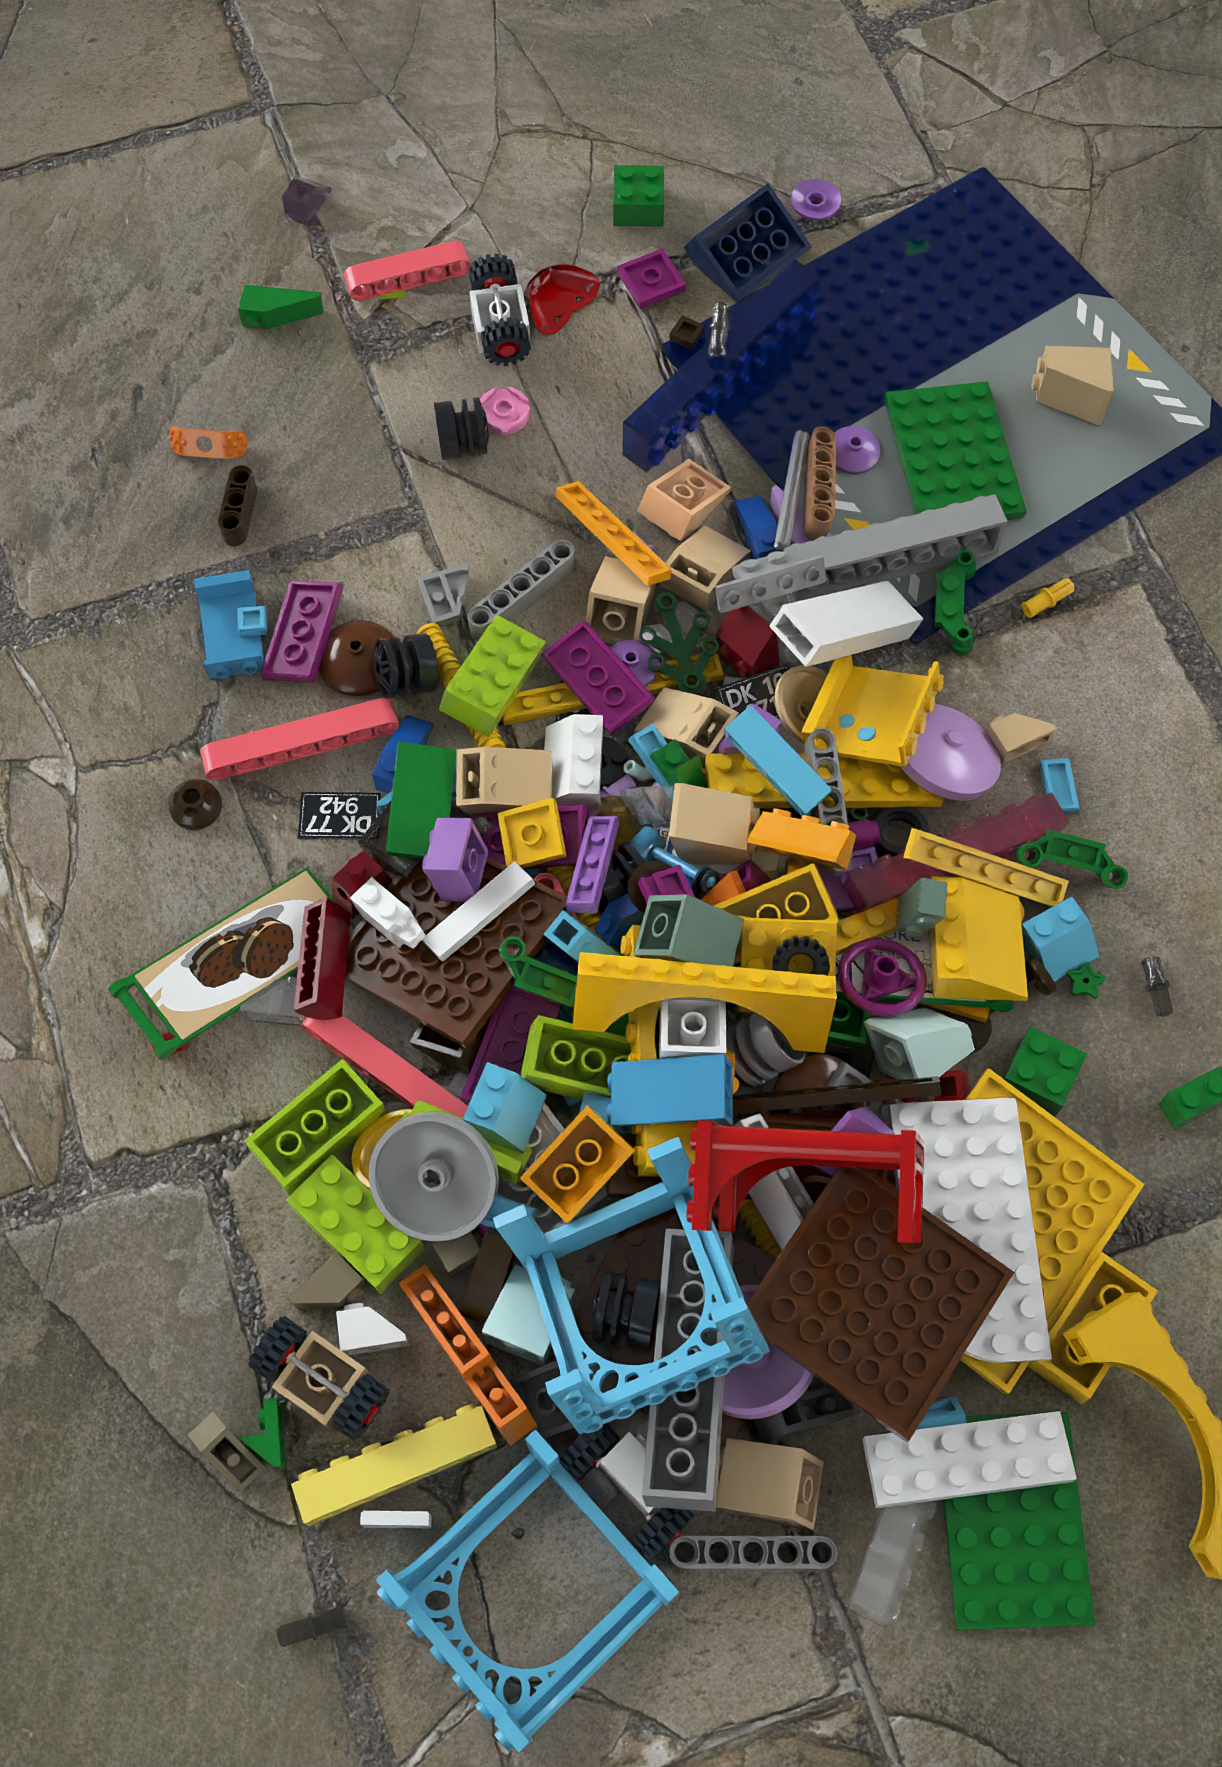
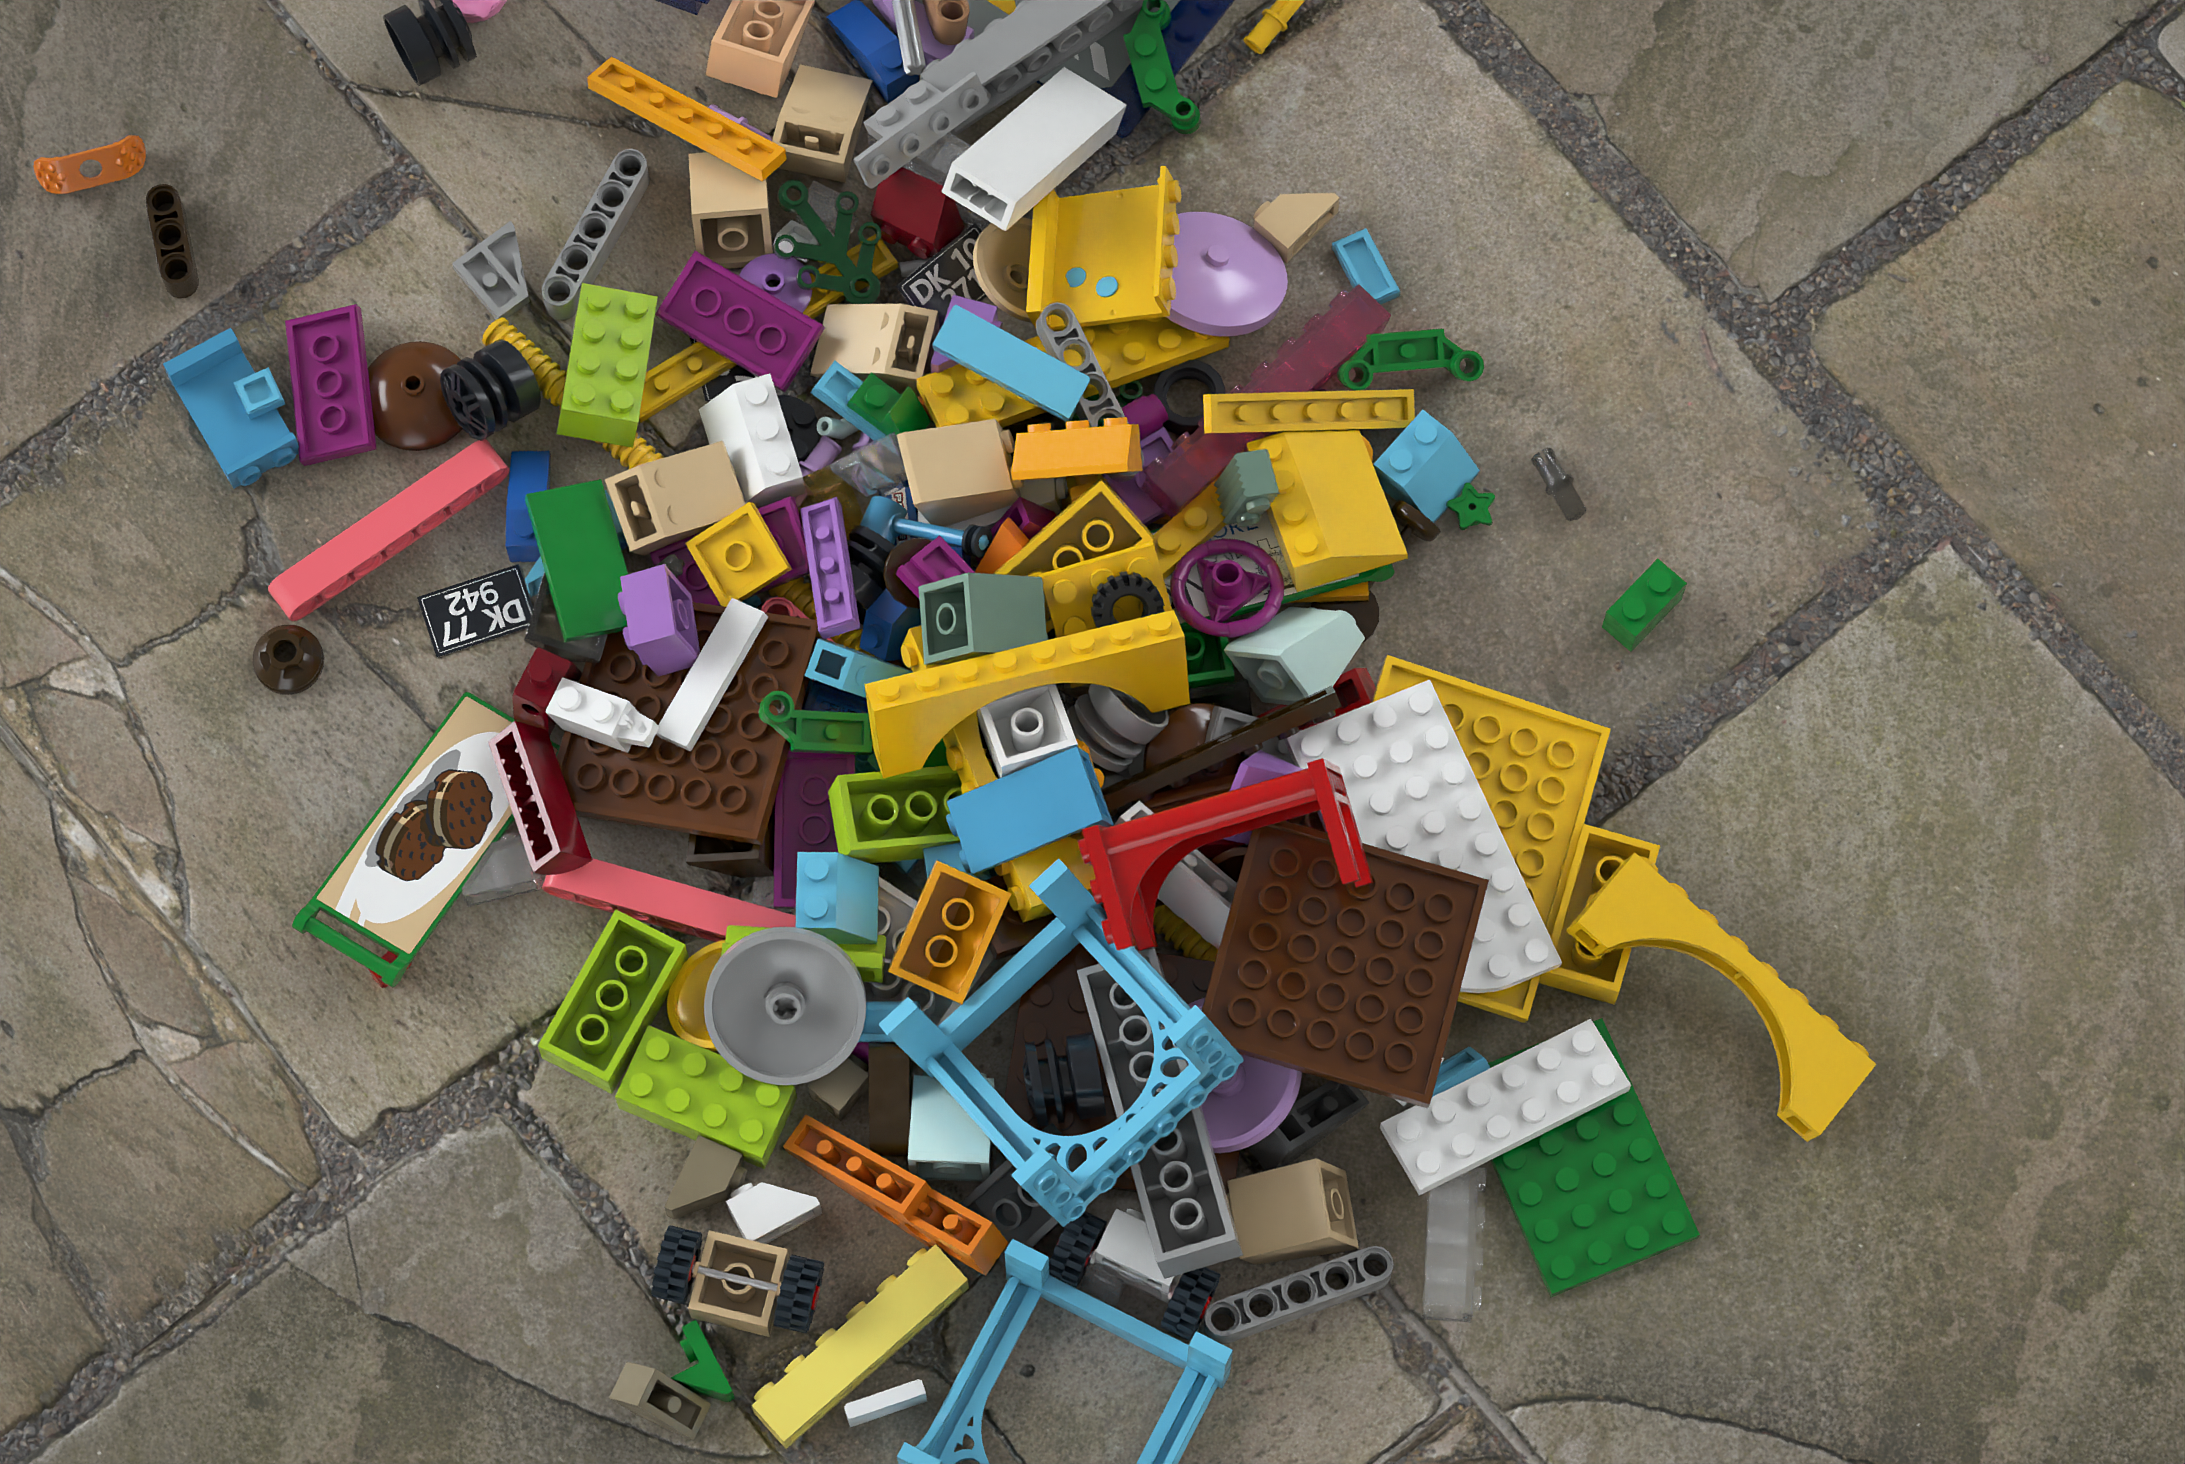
camera: 20 degrees left, 5 degrees up
(1044, 1069) = (1455, 633): green brick -> none

